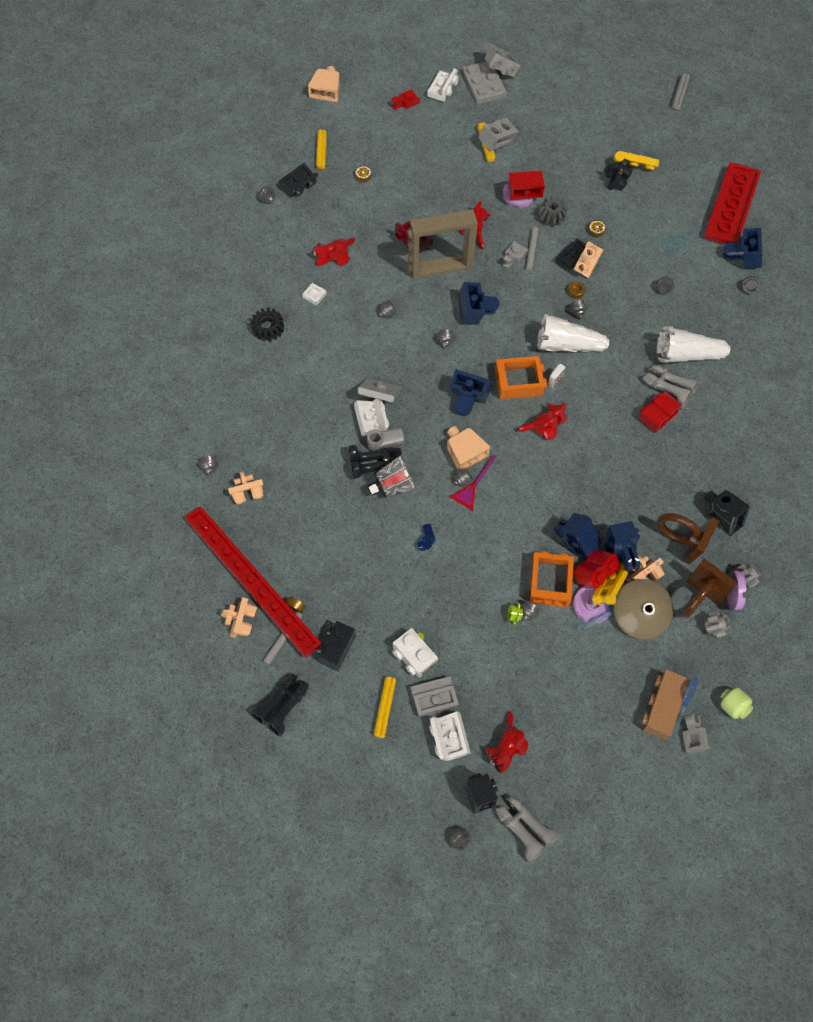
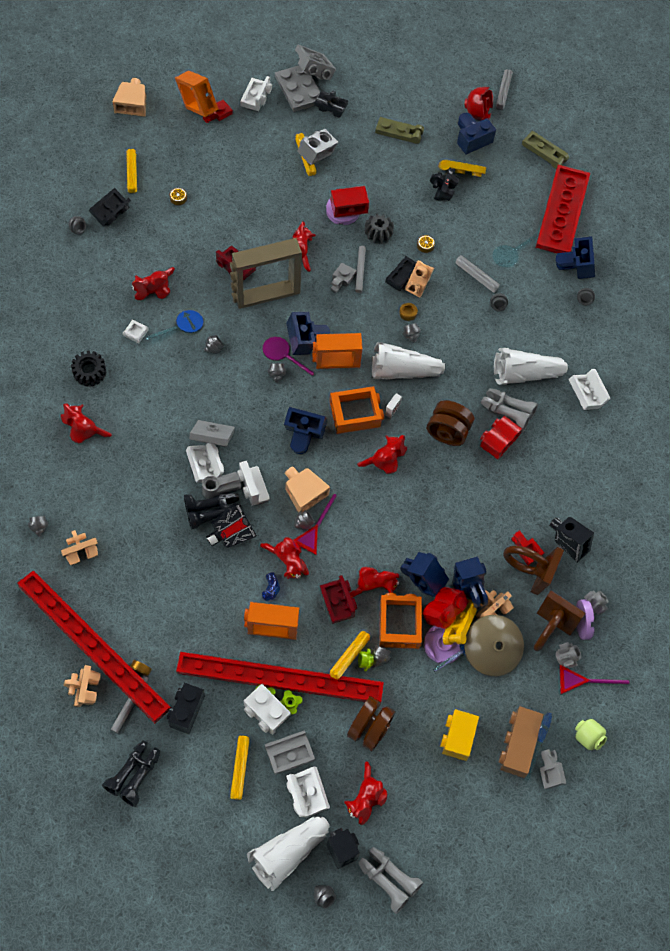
camera: 10 degrees left, 0 degrees up
(256, 376) = (82, 426): none -> red animal
(363, 288) = (187, 321): none -> blue piece
(387, 87) = (196, 99): none -> orange window
(416, 438) = (254, 484): none -> white bracket
(423, 792) = (286, 851): none -> white cone
(425, 568) = (272, 620): none -> orange window
(430, 624) = (278, 677): none -> red plate
(436, 642) = (296, 700): none -> lime plate
(446, 507) = (288, 552): none -> red animal
(448, 317) = (277, 349): none -> magenta piece
(491, 554) = (338, 600): none -> dark red bracket
(499, 607) = (349, 655): none -> yellow axle
(505, 312) = (337, 350): none -> orange window
(513, 96) = (331, 103): none -> black hips
(518, 676) = (374, 725): none -> reddish brown wheel
(525, 537) = (371, 579): none -> red animal
(577, 124) = (399, 130): none -> olive plate
(604, 692) = (459, 735): none -> yellow brick
(611, 394) = (450, 423): none -> reddish brown wheel
(645, 258) = (477, 273): none -> light grey axle
(650, 130) = (474, 134): none -> dark blue brick
(656, 102) = (479, 103): none -> red cylinder
(674, 508) = (519, 539): none -> red plate
(718, 147) = (545, 149): none -> olive plate
(718, 649) = (571, 680): none -> magenta piece
(751, 372) = (590, 390): none -> white bracket

